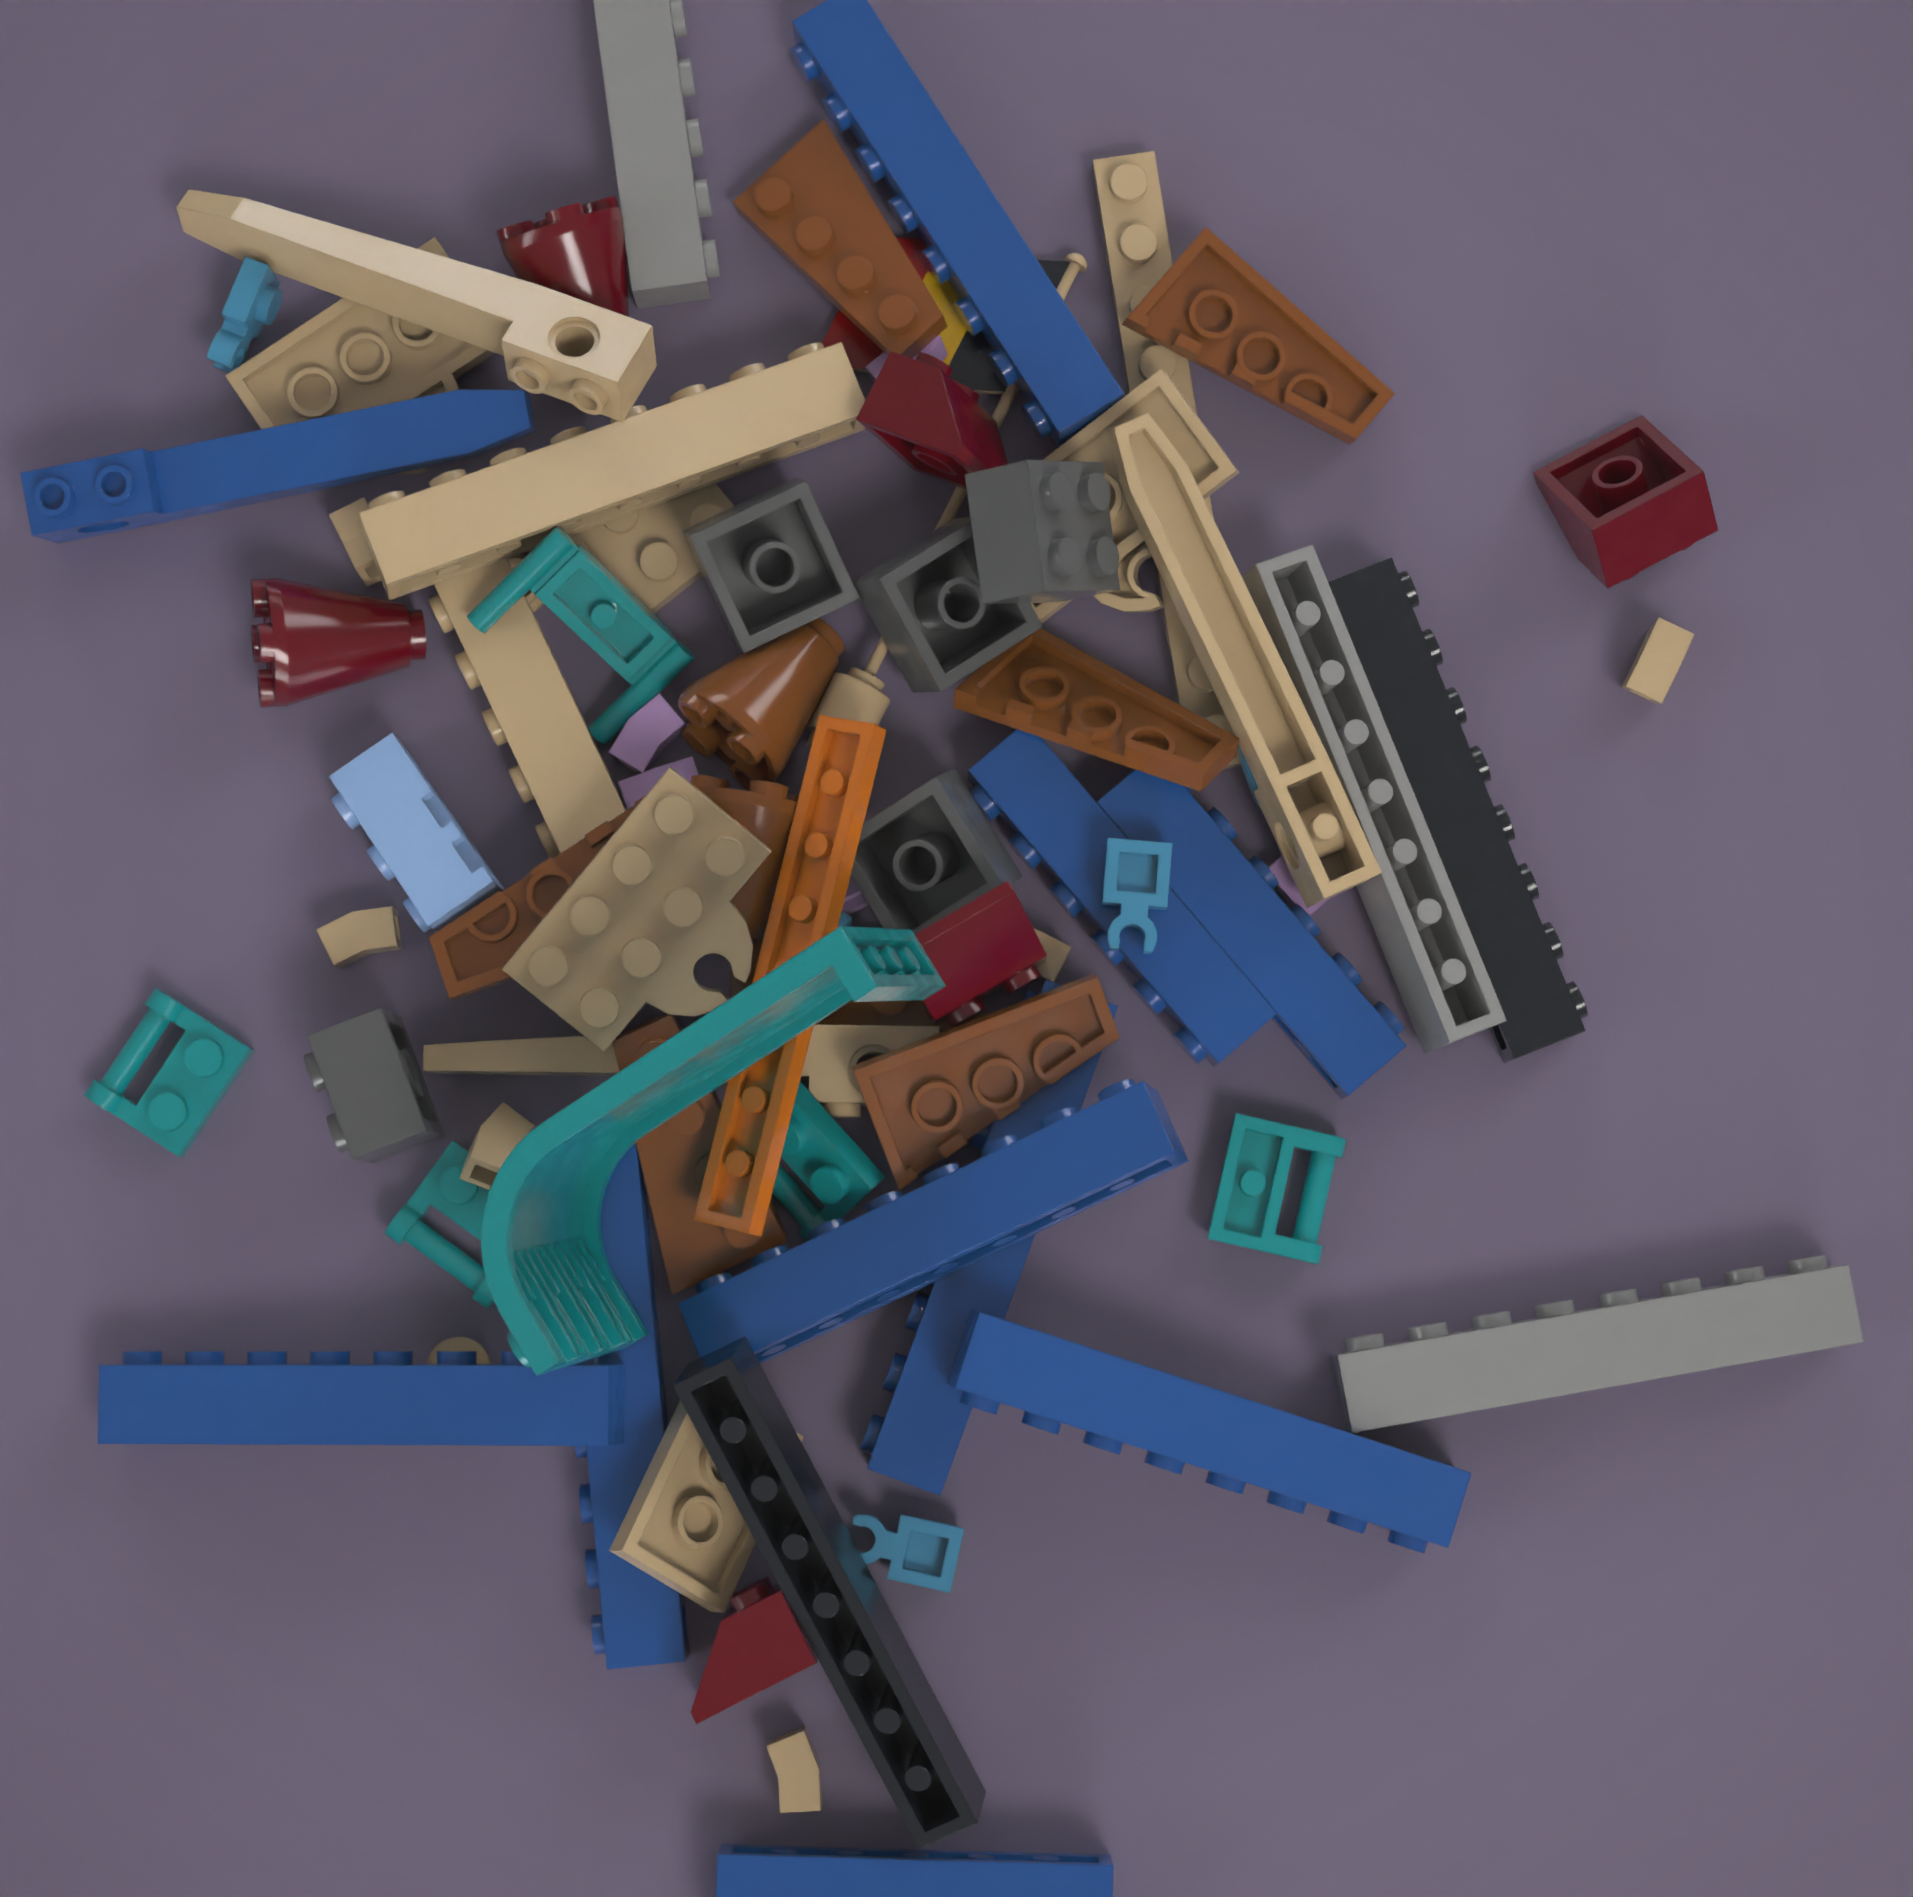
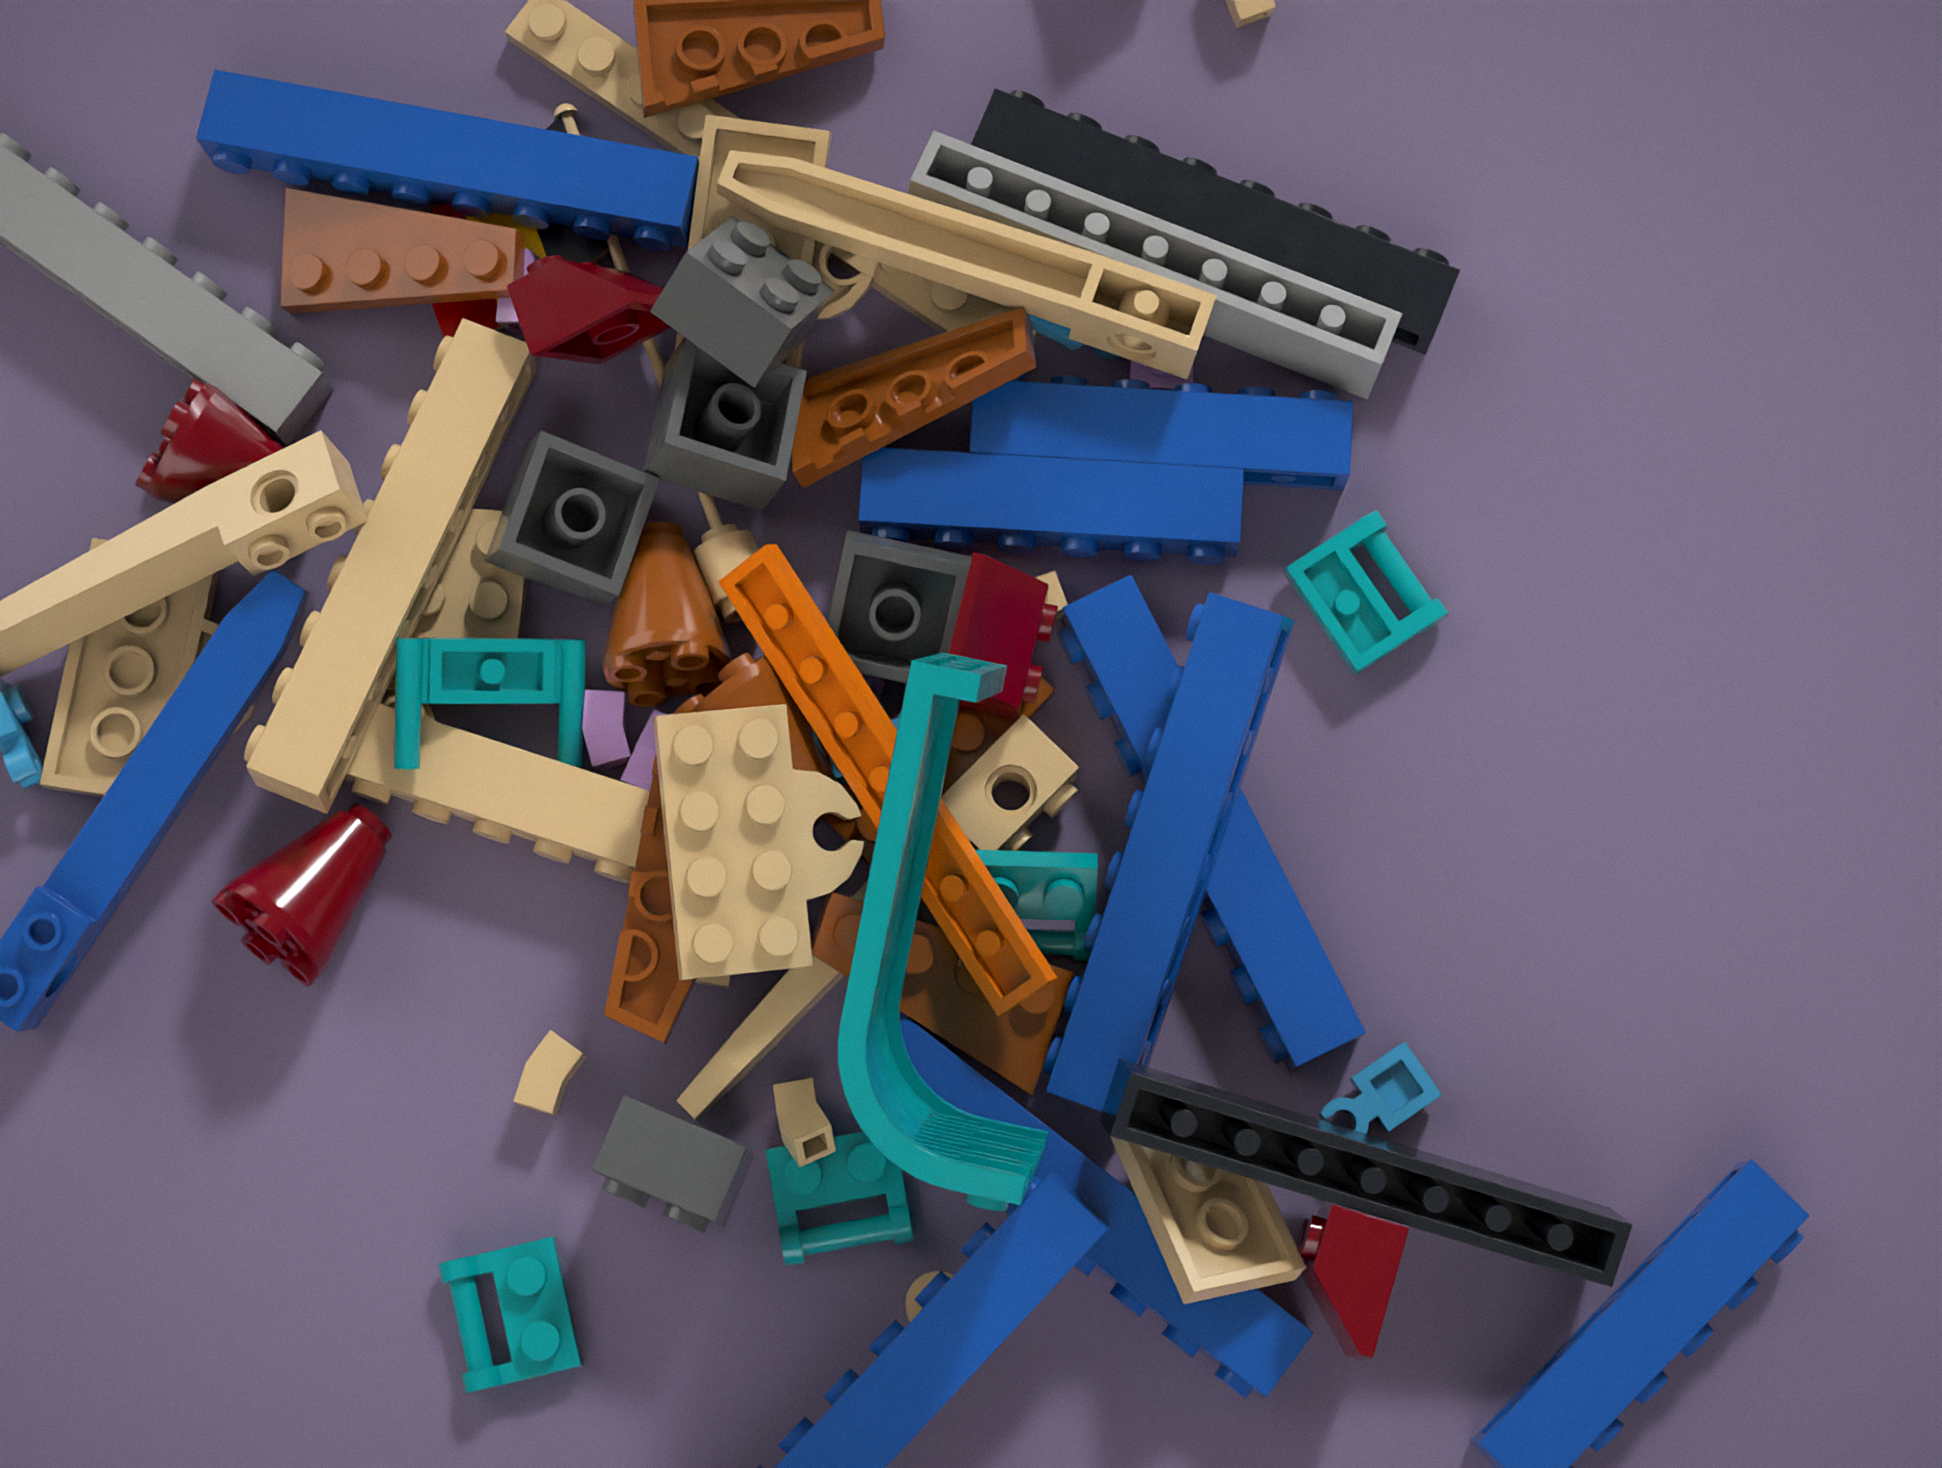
camera: 45 degrees left, 5 degrees down
(349, 529) = (248, 800): tan piece -> none
(412, 834) = (515, 963): light blue wedge -> none
(797, 1771) = (1468, 1332): tan piece -> none
(965, 1078) = (1081, 727): dark orange wing -> none
(1136, 881) = (1056, 474): dark azure plate -> none
(1207, 1429) = (1494, 796): blue brick -> none
(1595, 1346) = (1688, 478): light grey brick -> none

